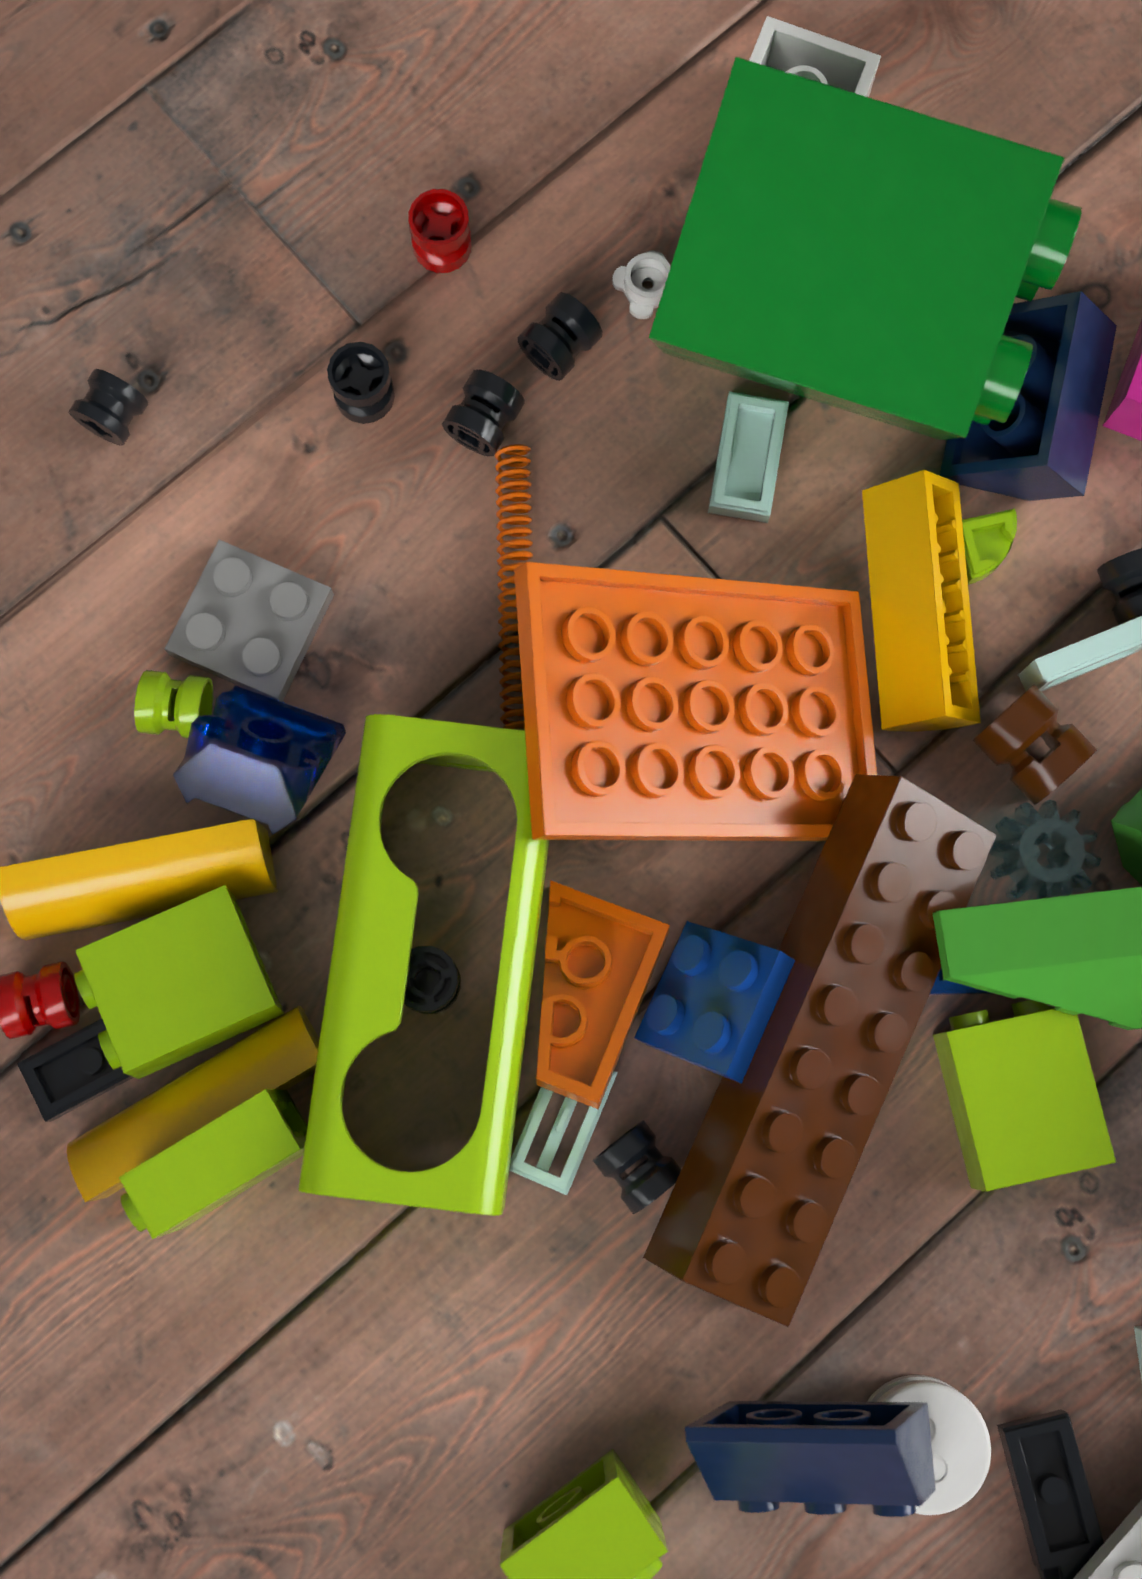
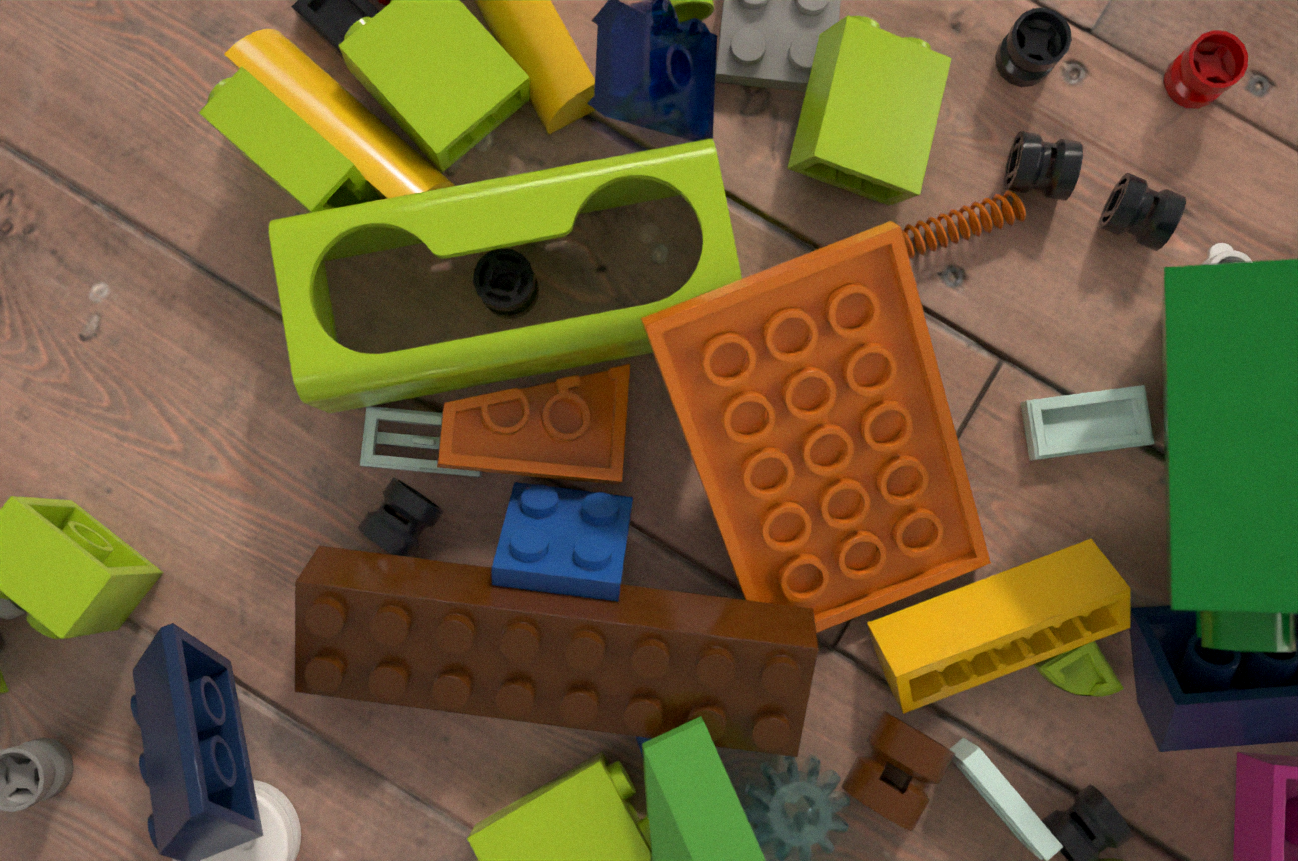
camera: 75 degrees right, 5 degrees up
(374, 559) = (870, 111): none -> lime brick

